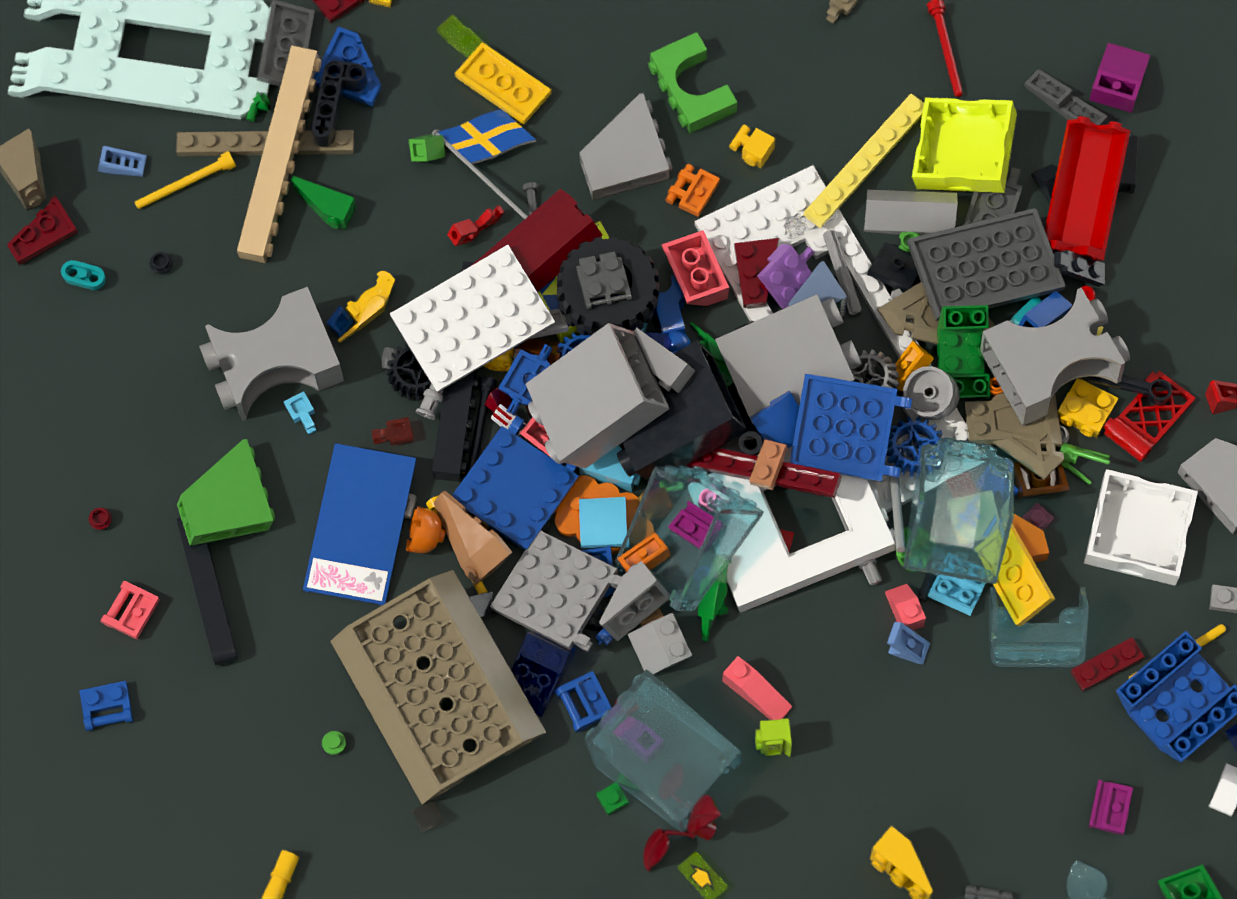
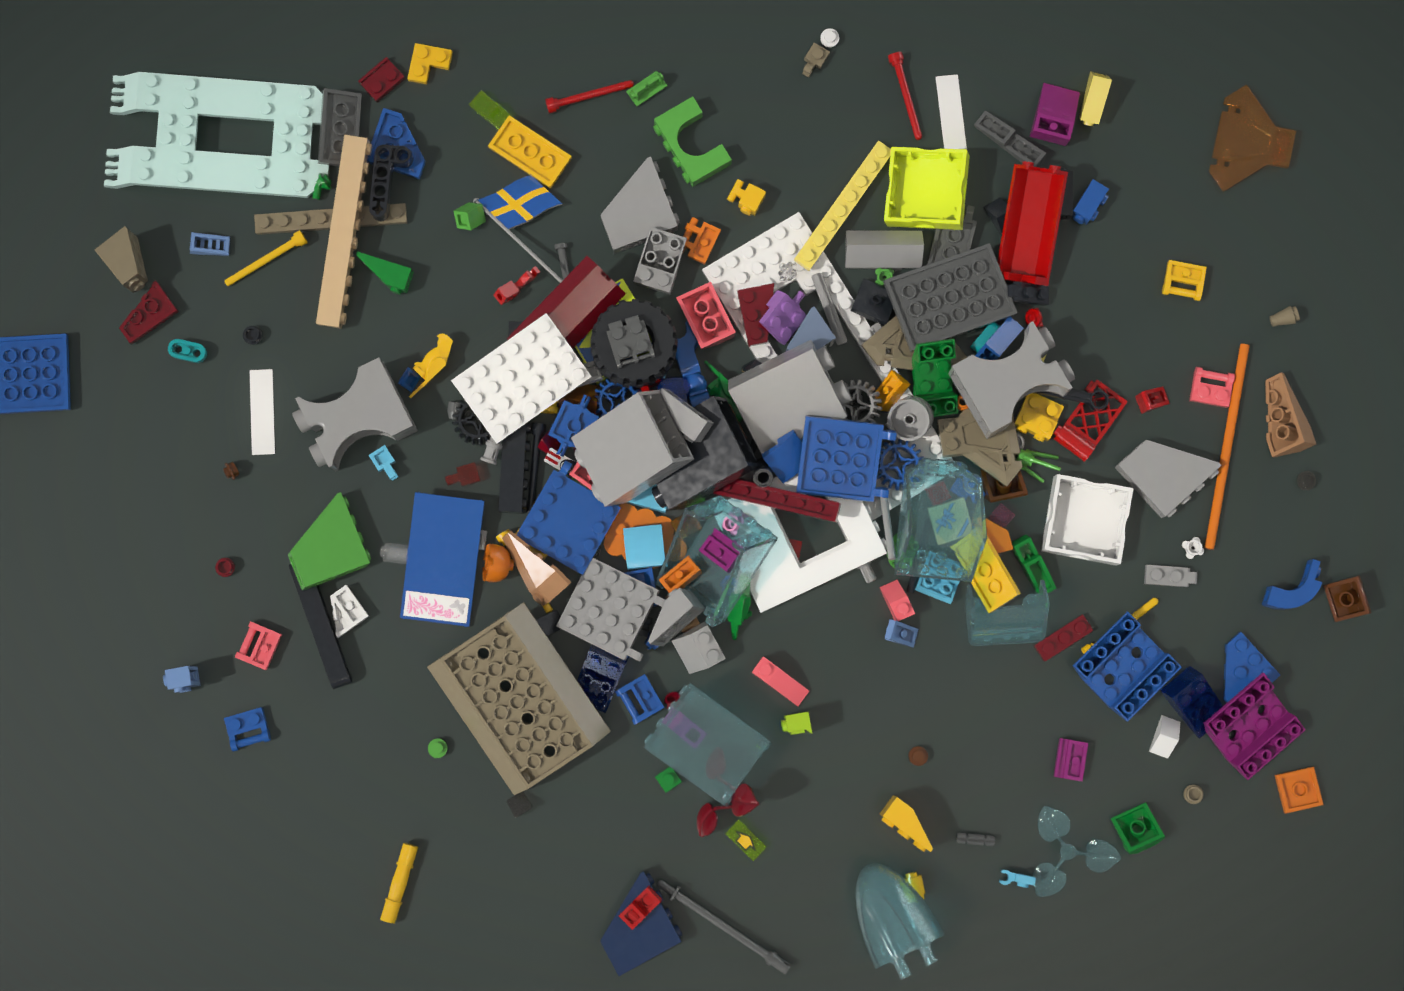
camera: 10 degrees left, 15 degrees up
(35, 637) = (181, 678): none -> medium blue brick
(119, 409) = (231, 470): none -> reddish brown plate
(162, 349) = (262, 412): none -> white sticker
(239, 576) = (346, 610): none -> white wing
(303, 513) = (394, 553): none -> clear brick
(535, 34) = (554, 104): none -> red piece
(644, 23) = (647, 88): none -> bright green hinge
(645, 207) = (660, 260): none -> light grey slope
(768, 464) = (779, 495): nougat plate -> none
(921, 791) = (918, 756): none -> reddish brown plate
(997, 65) = (951, 112): none -> white sticker
(1072, 573) = (1032, 563): none -> green slope
(1157, 173) = (1090, 200): none -> blue brick
(1167, 61) = (1094, 98): none -> light yellow slope

